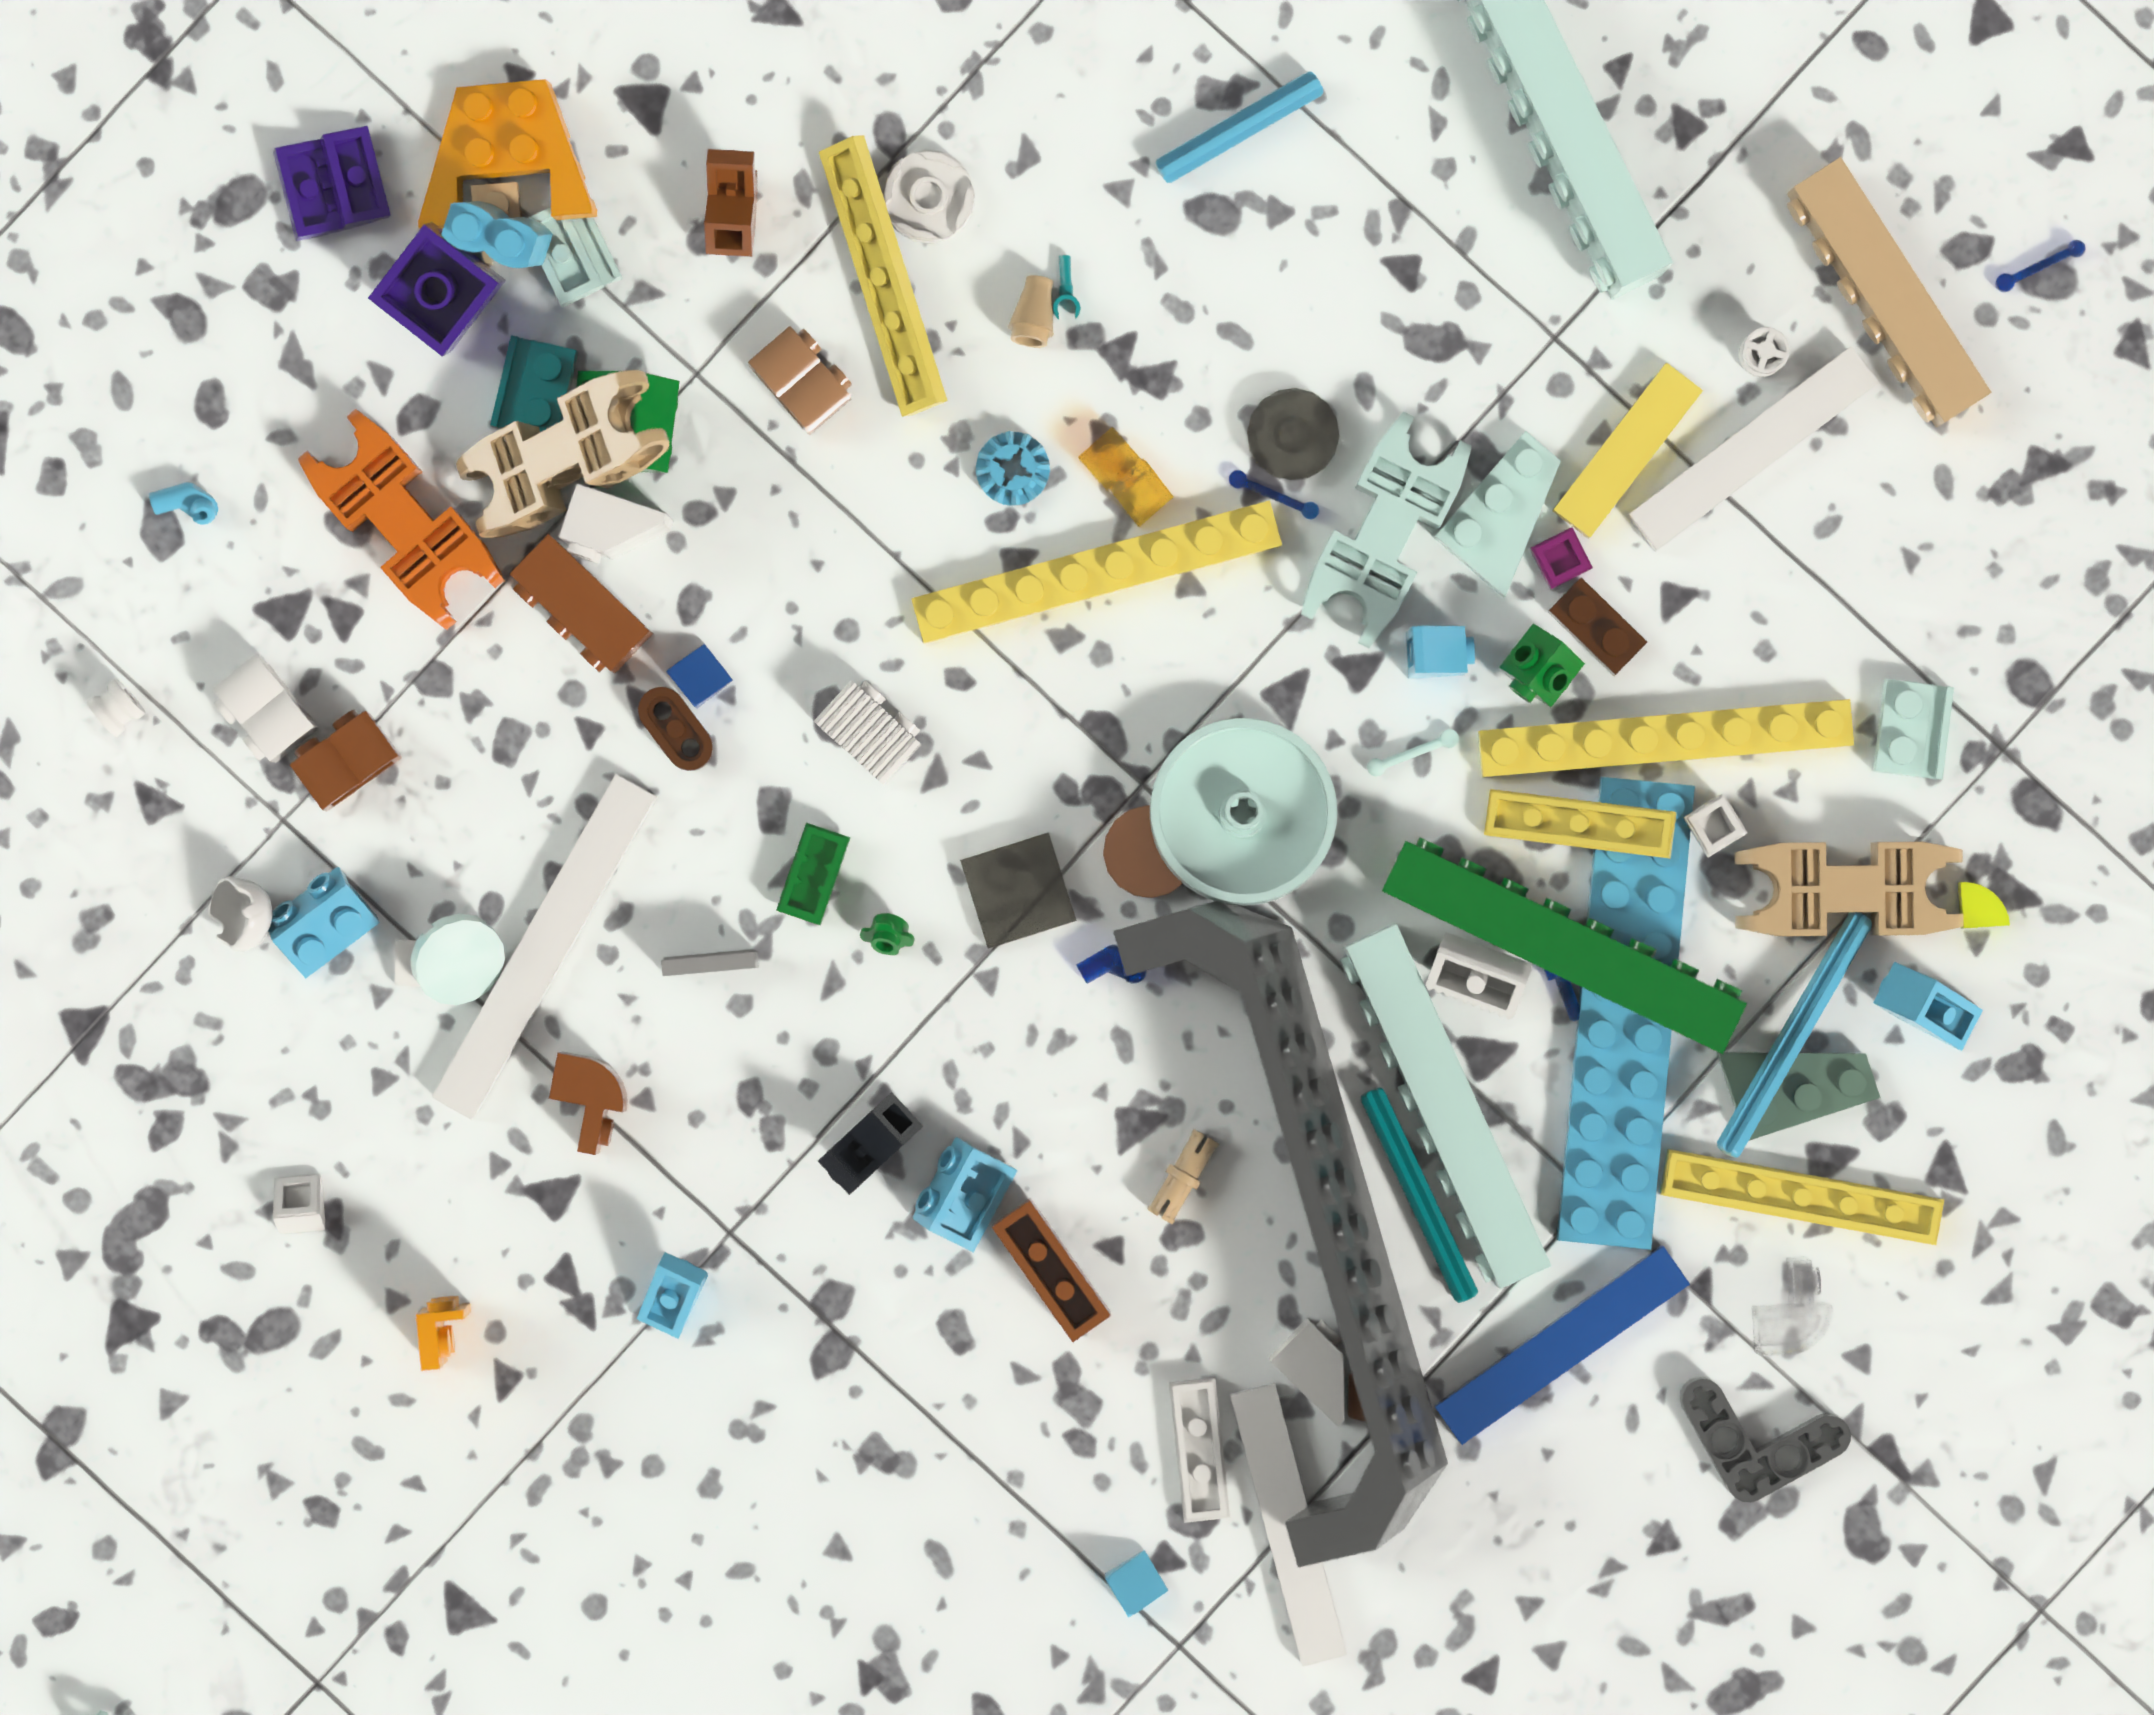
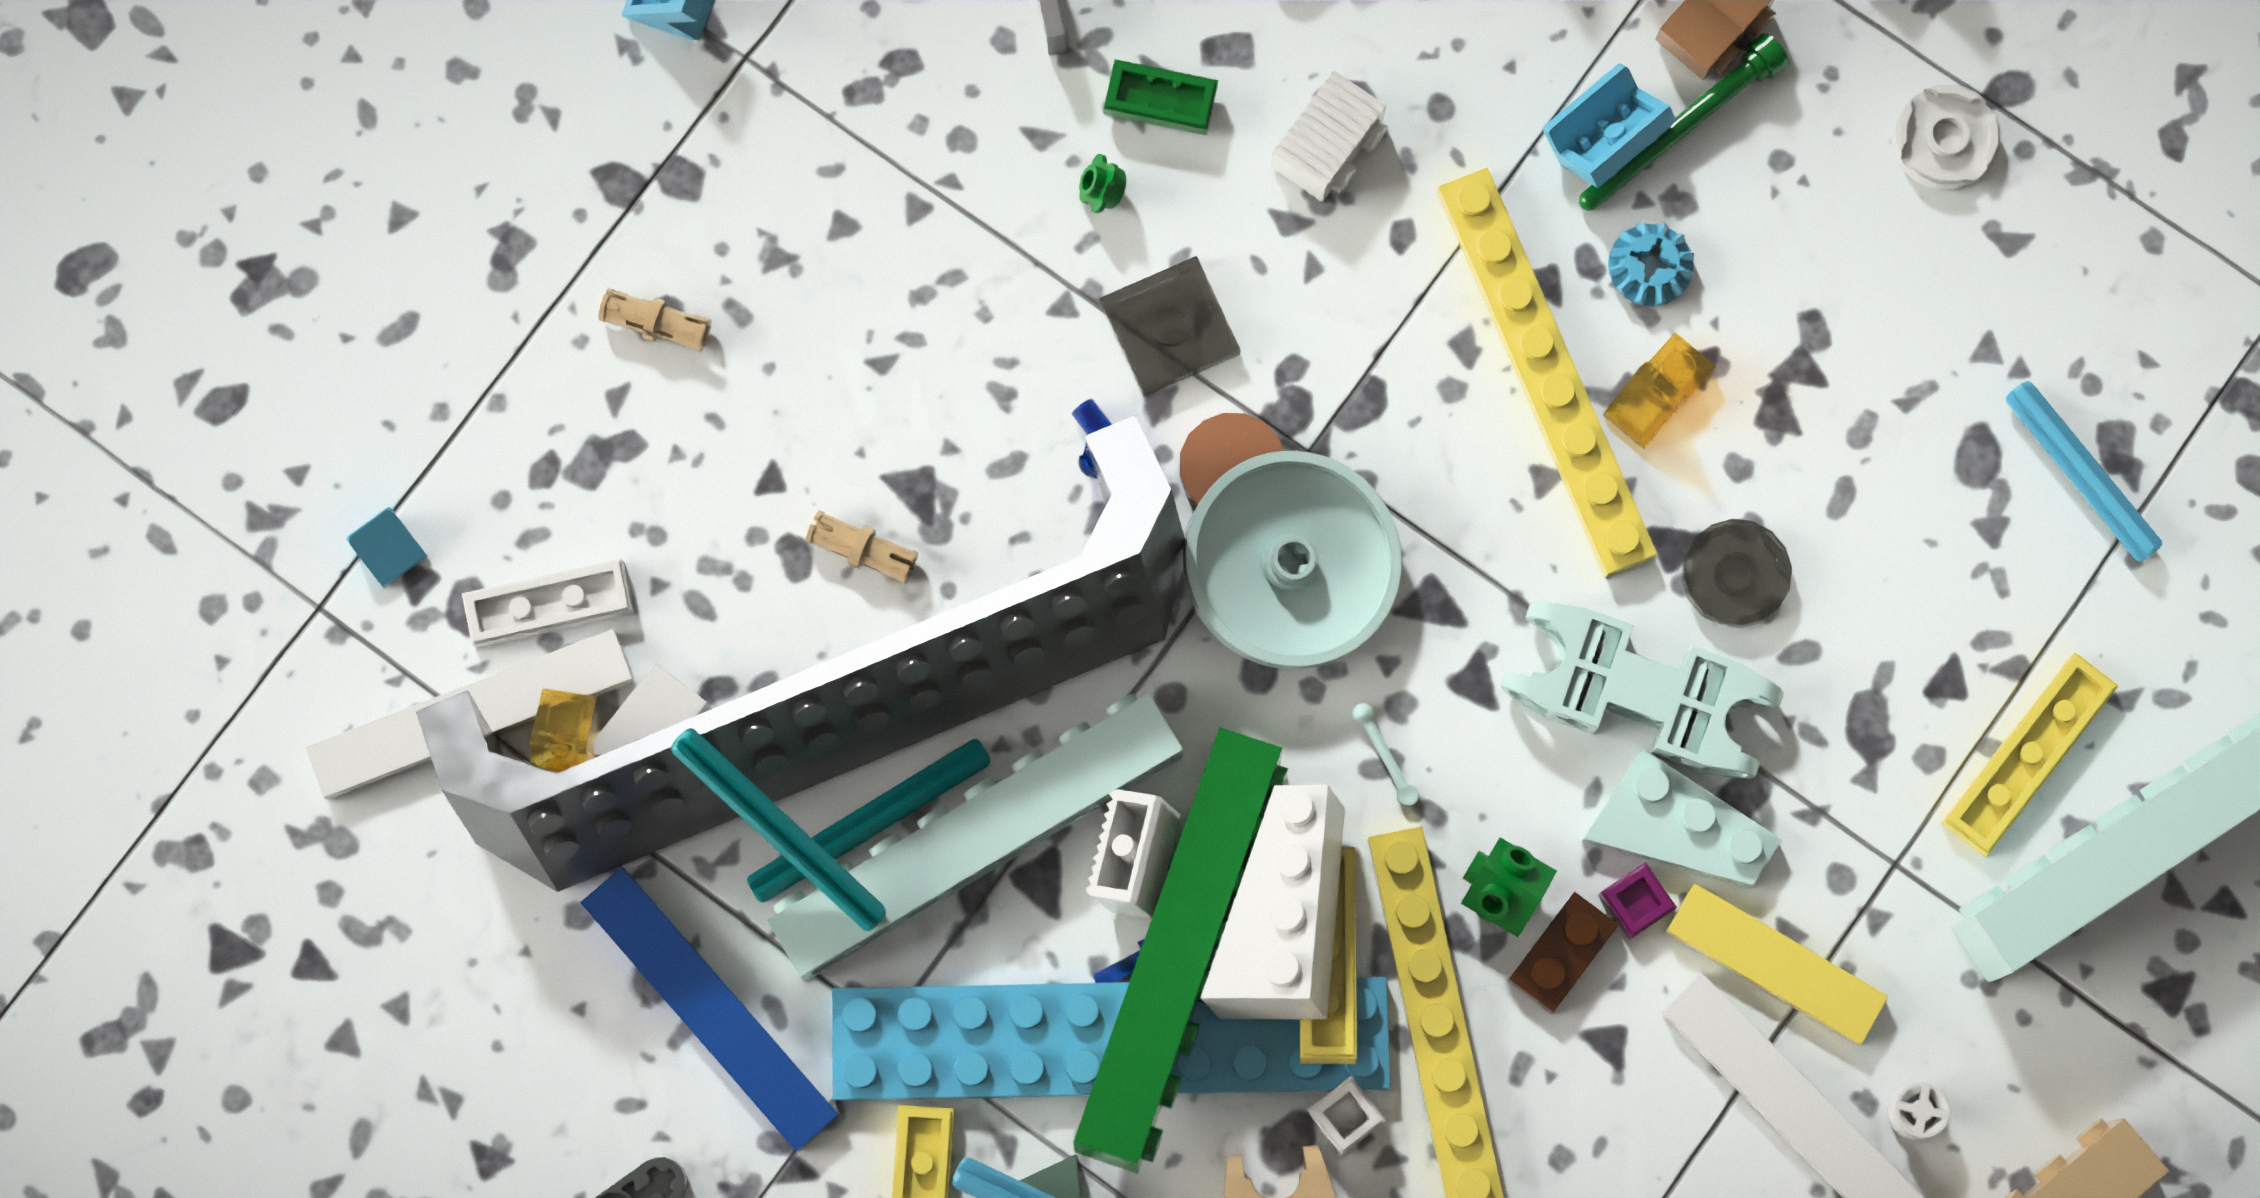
camera: 85 degrees right, 10 degrees down
(844, 349) = (1763, 59): none -> green piece
(870, 1143) = (859, 188): black brick -> none
(882, 275) = (1848, 93): light yellow plate -> none
(890, 489) = (1607, 127): none -> medium azure bracket
(961, 1335) = (654, 319): none -> tan pin
(963, 1194) = (814, 303): medium azure bracket -> none
(1033, 314) = (1829, 264): tan cone -> none
(1051, 1269) = (738, 404): dark orange brick -> none
(1066, 286) = (1863, 299): teal hand -> none
(1238, 480) = (1674, 520): clear blue hinge -> none
(1325, 1448) = (562, 730): none -> clear yellow slope
(1437, 1271) = (778, 829): none -> teal axle
(1438, 651) = (1509, 762): medium azure slope -> none
(1475, 211) = (2029, 754): none -> light yellow tile
(1548, 855) = (1284, 916): none -> white wedge

